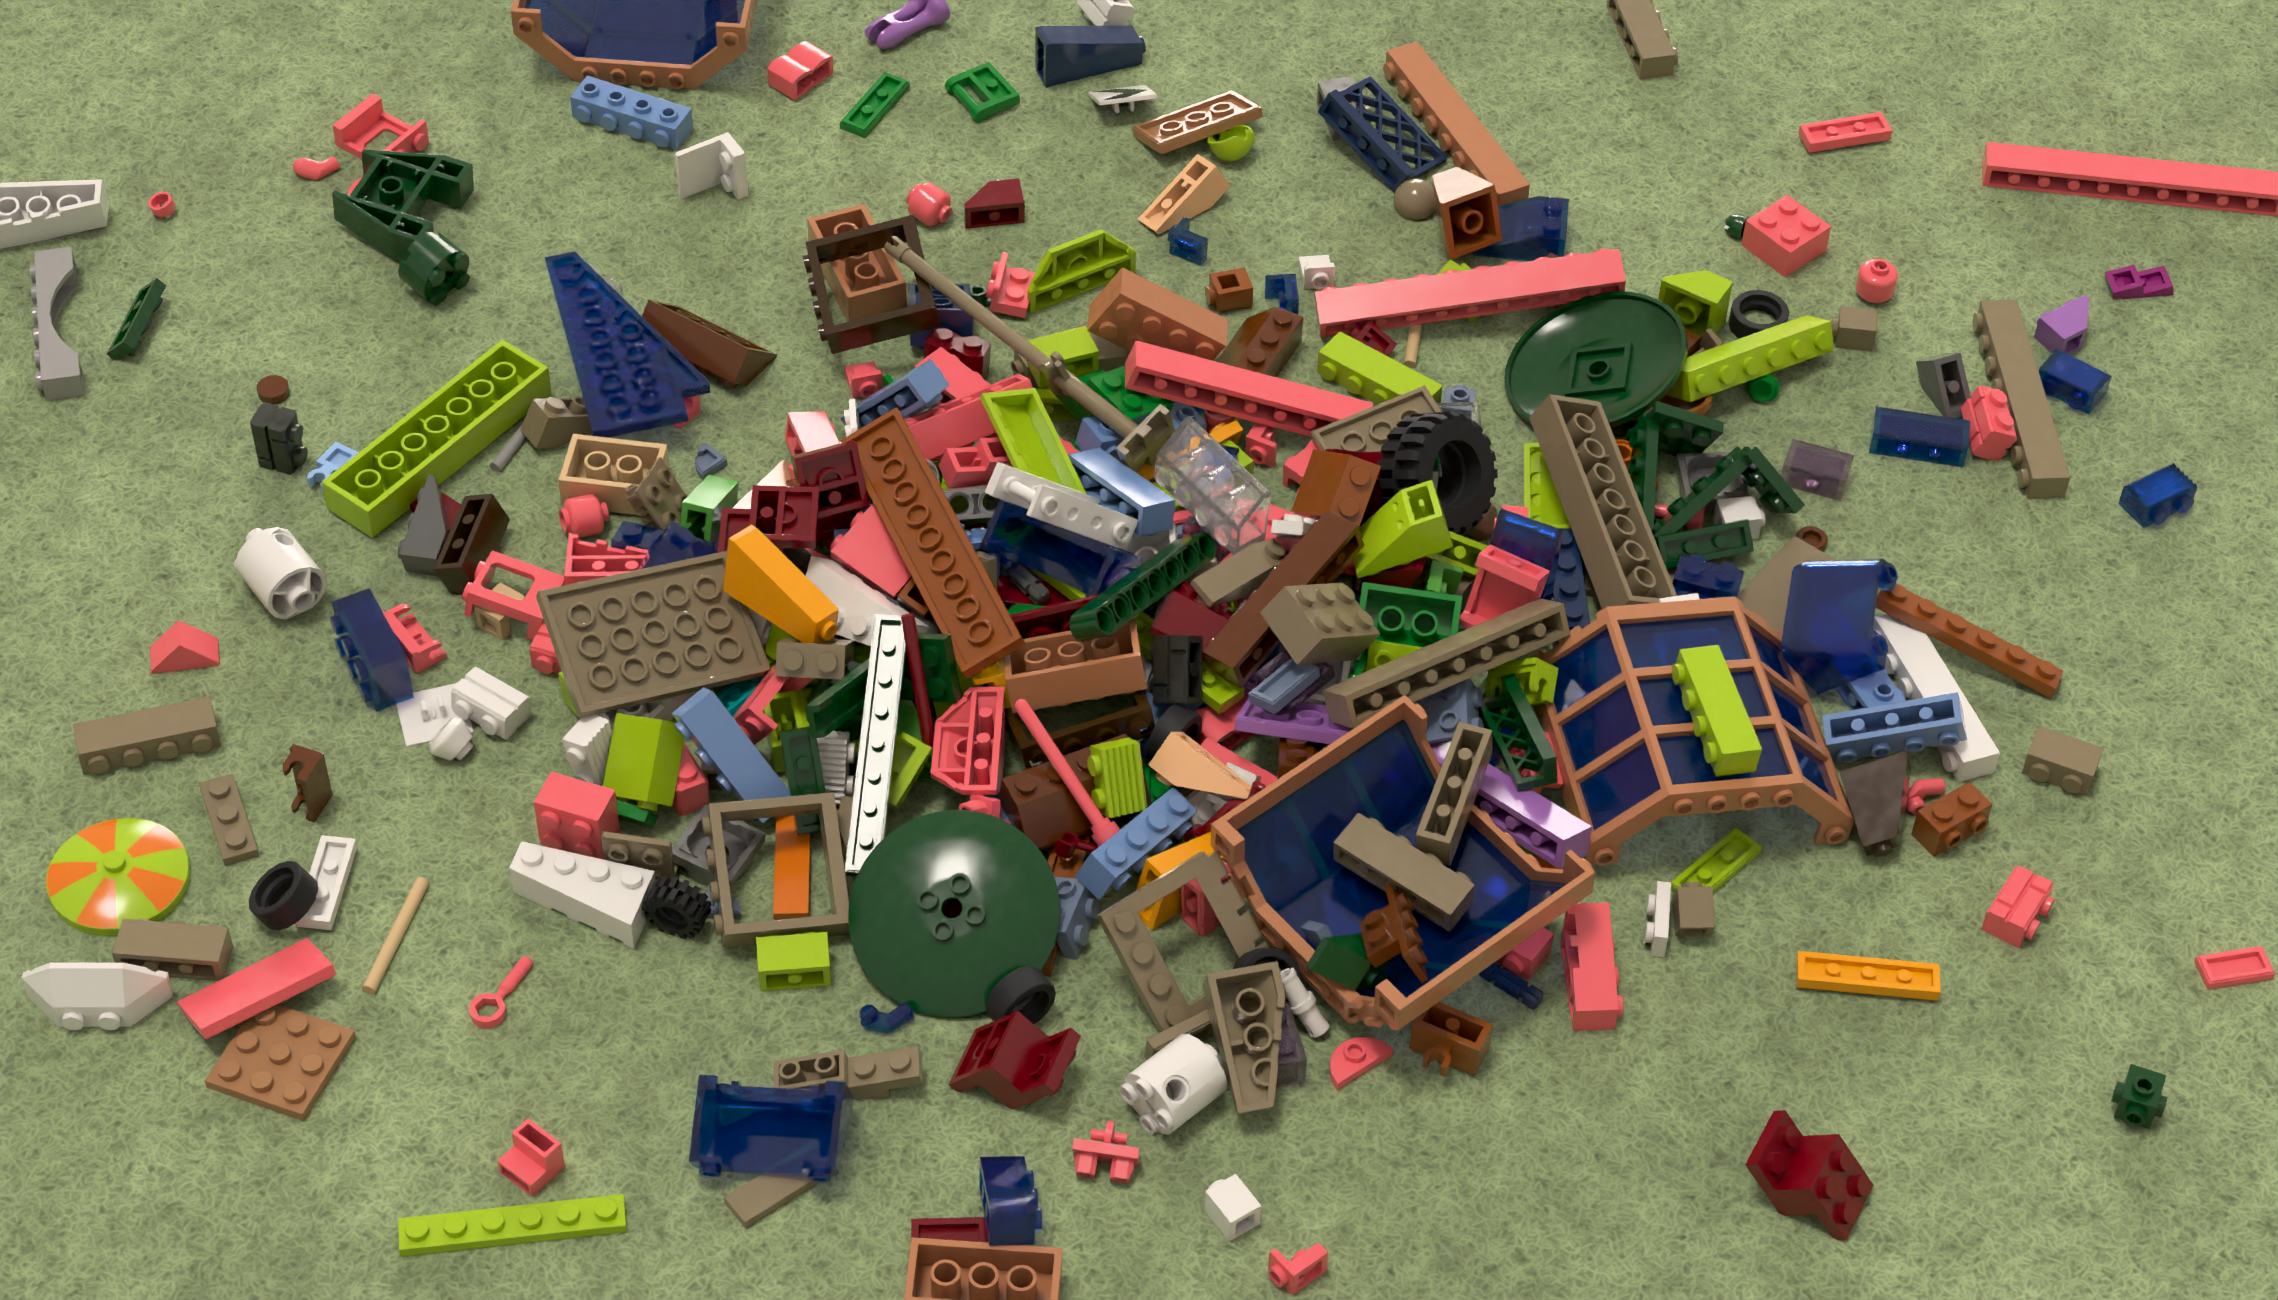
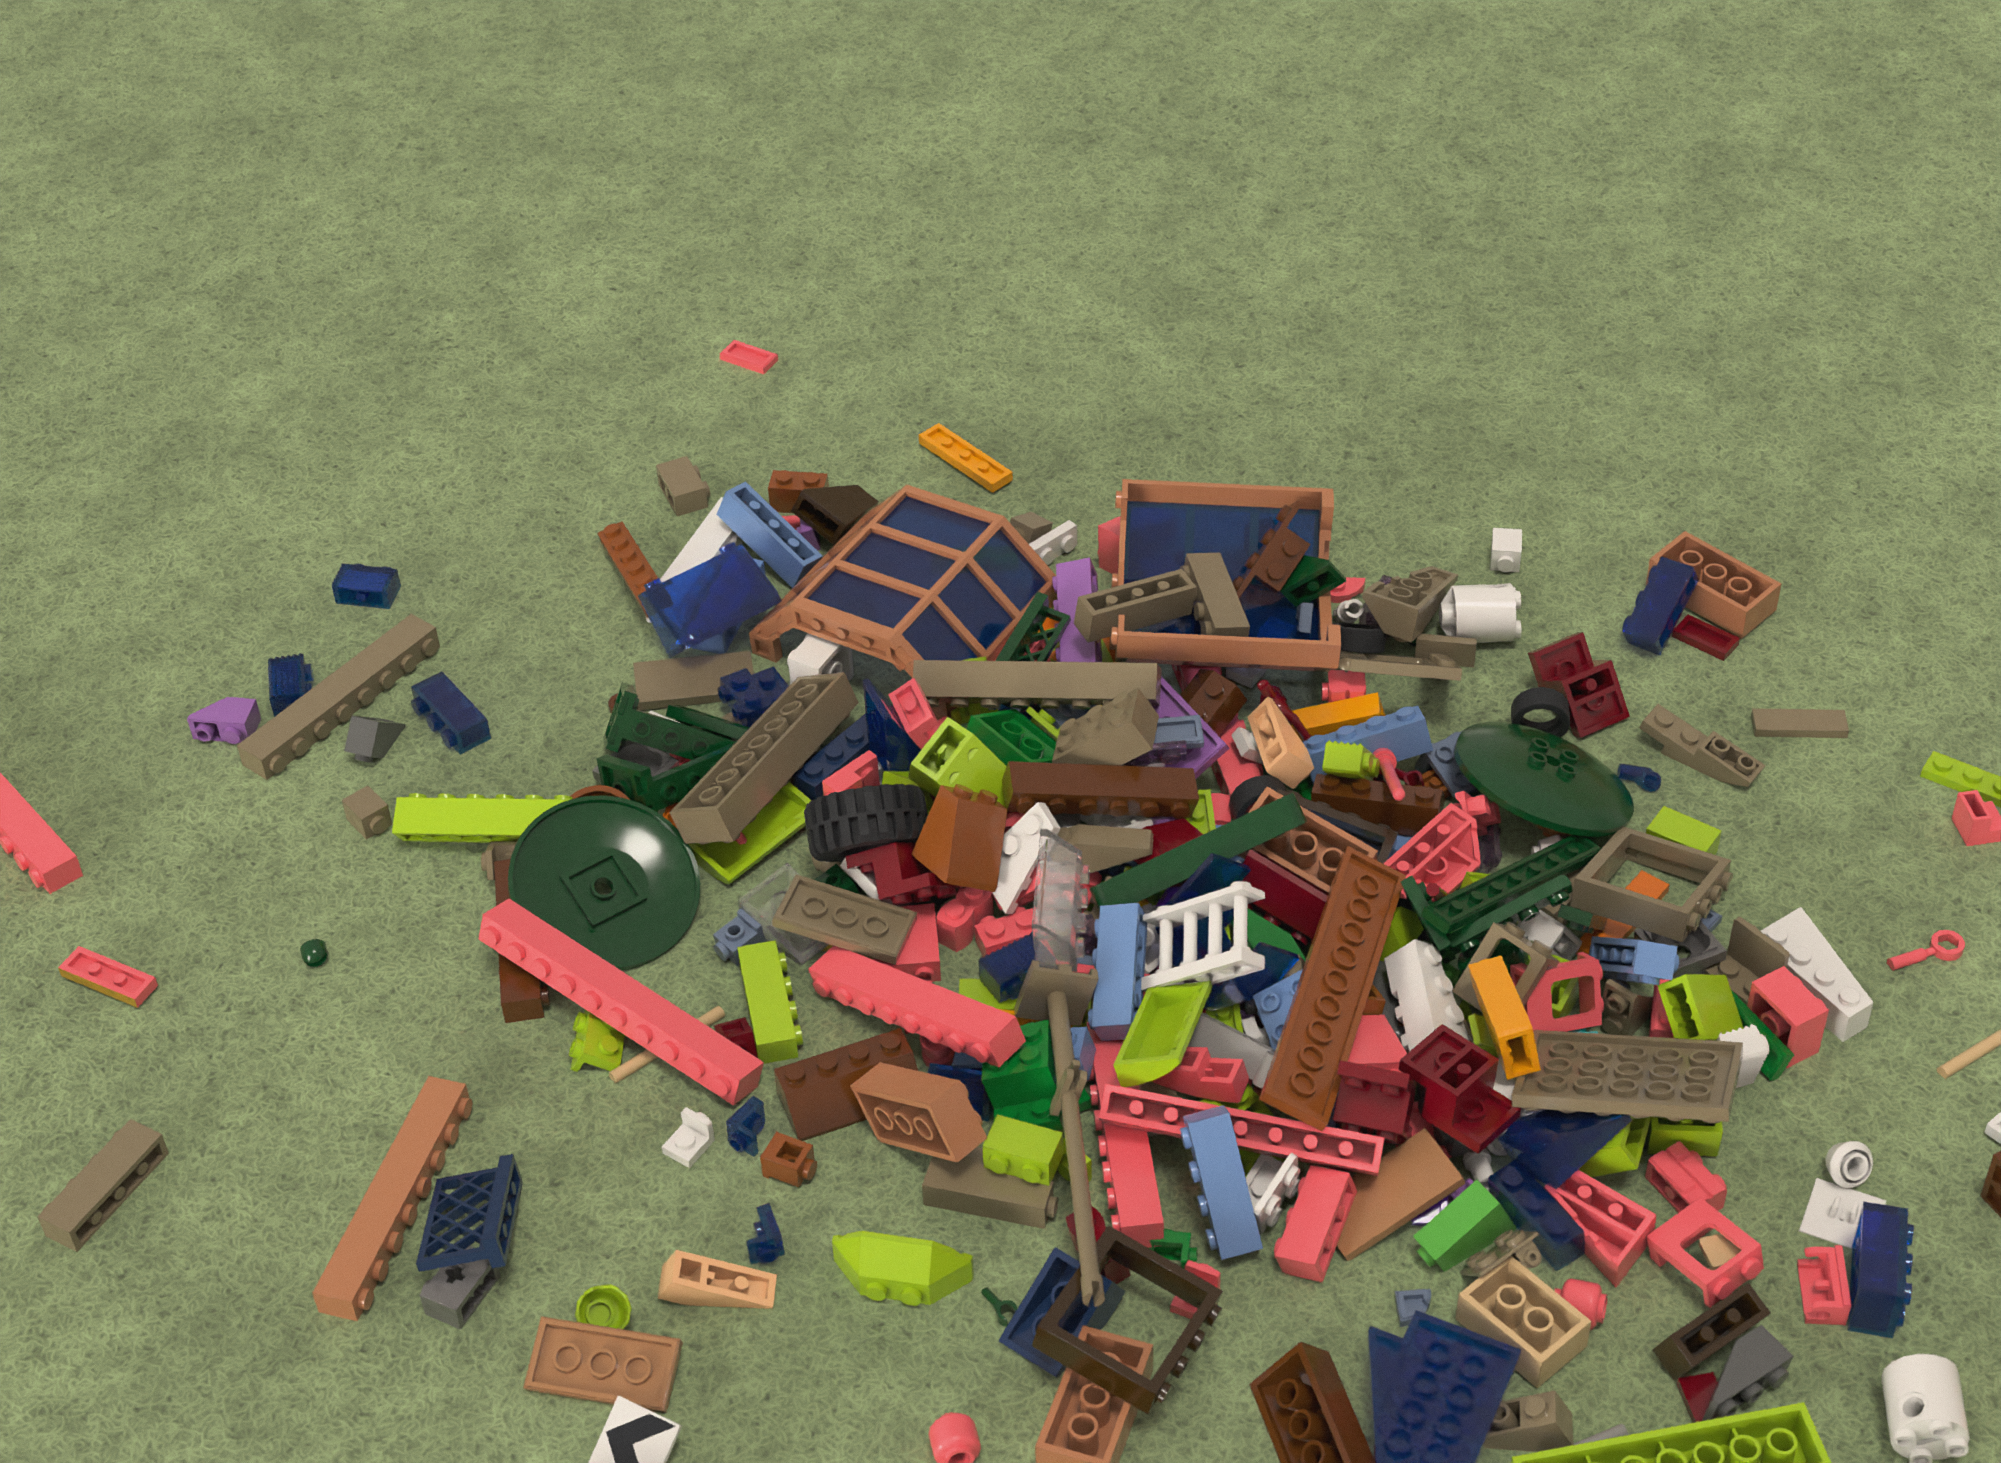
camera: 135 degrees left, 5 degrees down
(490, 703) = (1791, 1174): white brick -> none
(676, 907) = (1751, 903): black tyre -> none
(770, 1129) = (1792, 749): clear blue windscreen -> none
(996, 204) = (890, 1399): dark red slope -> none
(1009, 288) = (973, 1295): coral bracket -> none
(1088, 1153) = (1560, 617): coral hips -> none
(1176, 669) = (1219, 808): pearl dark grey brick -> none
(1300, 1271) = (1495, 501): coral bracket -> none
(1415, 199) = (526, 1146): dark tan hair -> none
(1466, 211) = (529, 1070): dark orange slope -> none
(1530, 229) = (482, 1054): clear blue slope -> none
(1697, 299) = (457, 884): lime slope -> none
(1716, 710) = (912, 530): lime brick -> none
(1756, 300) = (416, 886): black tyre -> none
(1786, 235) = (299, 910): coral brick -> none
(1809, 1175) = (1141, 380): dark red bracket -> none
(1817, 469) = (553, 734): brick -> none
(1876, 281) = (297, 832): coral head -> none
(1989, 423) = (391, 688): coral brick -> none
(2018, 906) = (828, 437): coral brick -> none
(2129, 283) = (118, 728): magenta slope -> none
(2139, 1097) = (903, 323): dark green brick -> none

